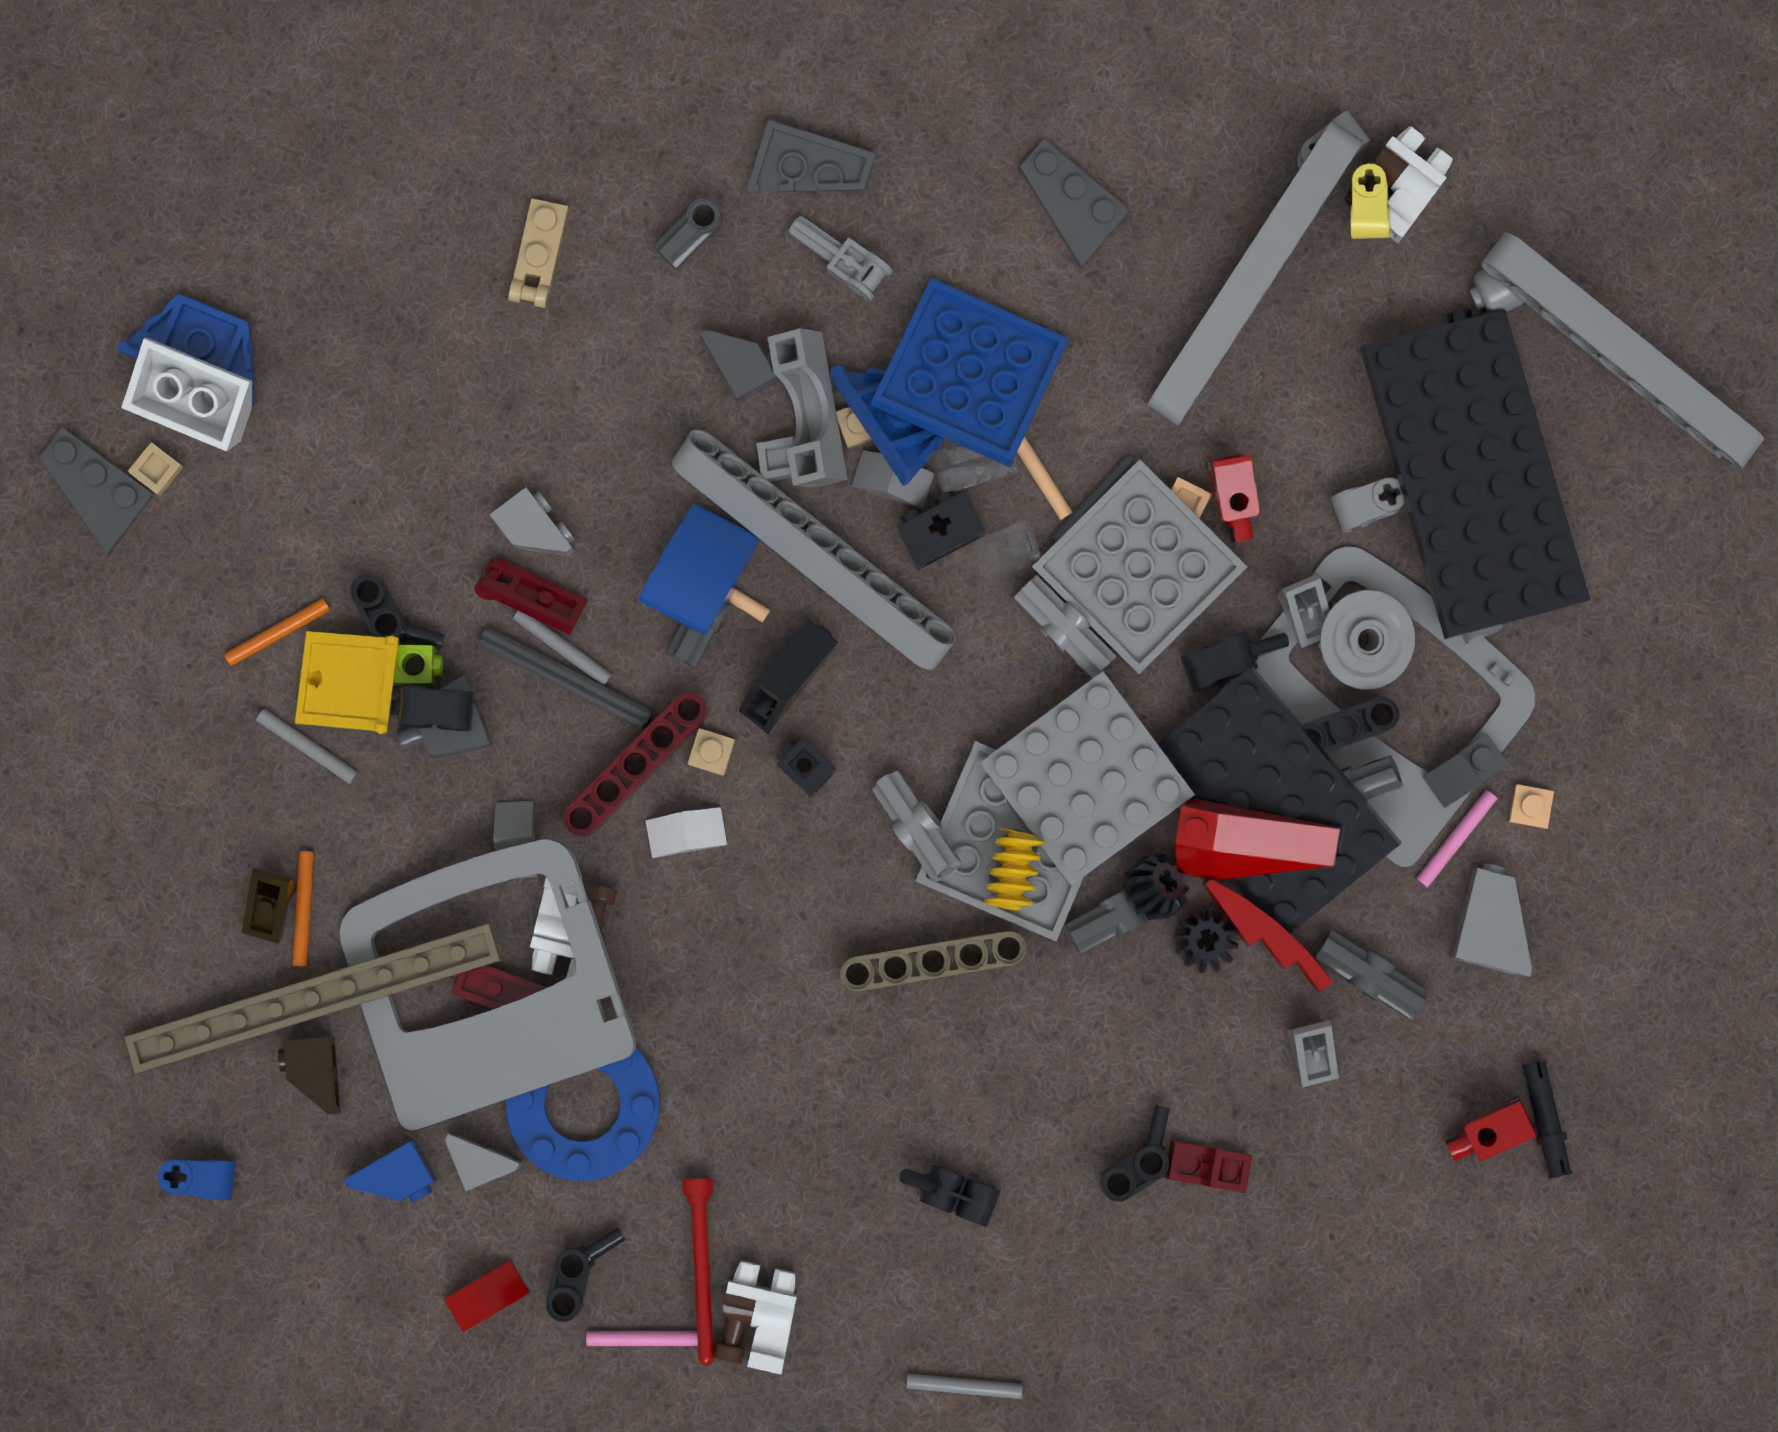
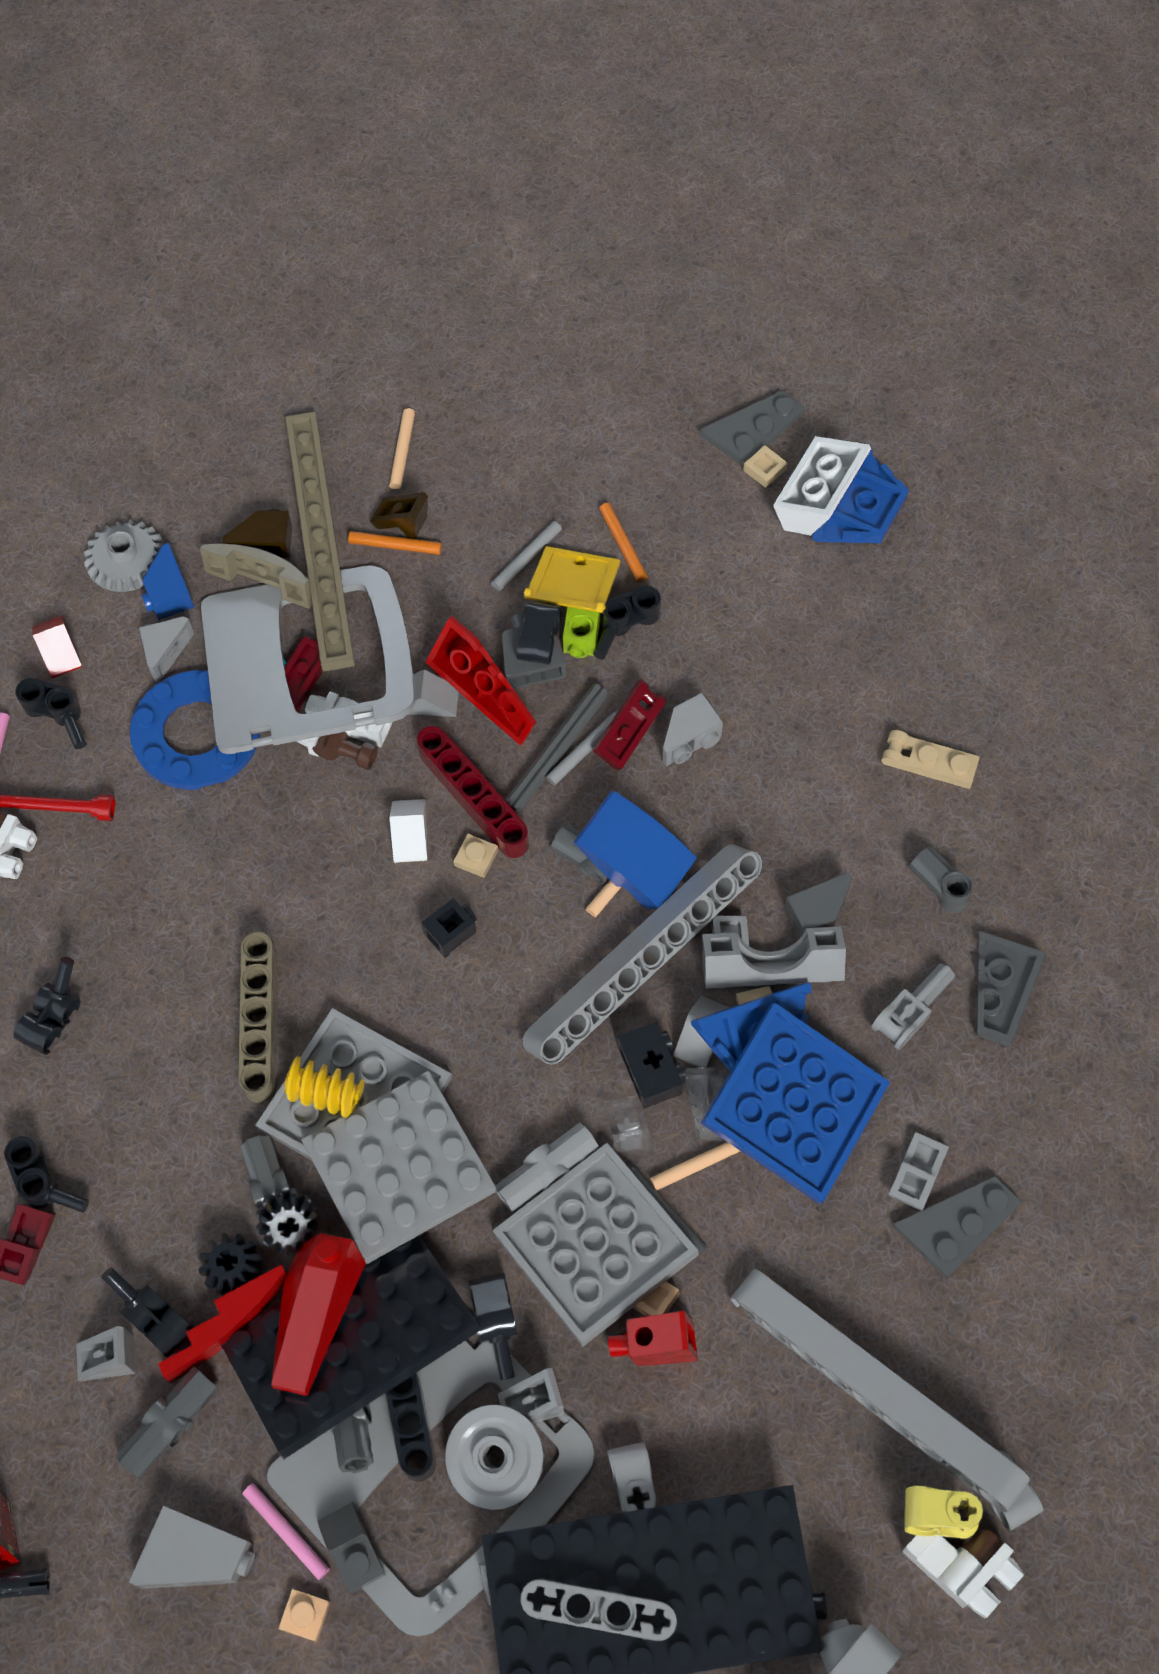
camera: 100 degrees right, 20 degrees down
(163, 921) = (402, 449): none -> light nougat bar
(204, 1178) = (194, 451): blue piece -> none
(354, 1108) = (232, 559): none -> dark tan slope
(379, 1239) = (118, 569): none -> light grey gear
(486, 782) = (473, 673): none -> red wedge
(787, 675) = (535, 920): black slope -> none
(916, 826) = (379, 1011): light grey piece -> none
(1023, 244) = (918, 1171): none -> light grey slope
(1267, 1011) = (149, 1314): none -> black beam
(1495, 516) = (597, 1614): none -> light grey beam

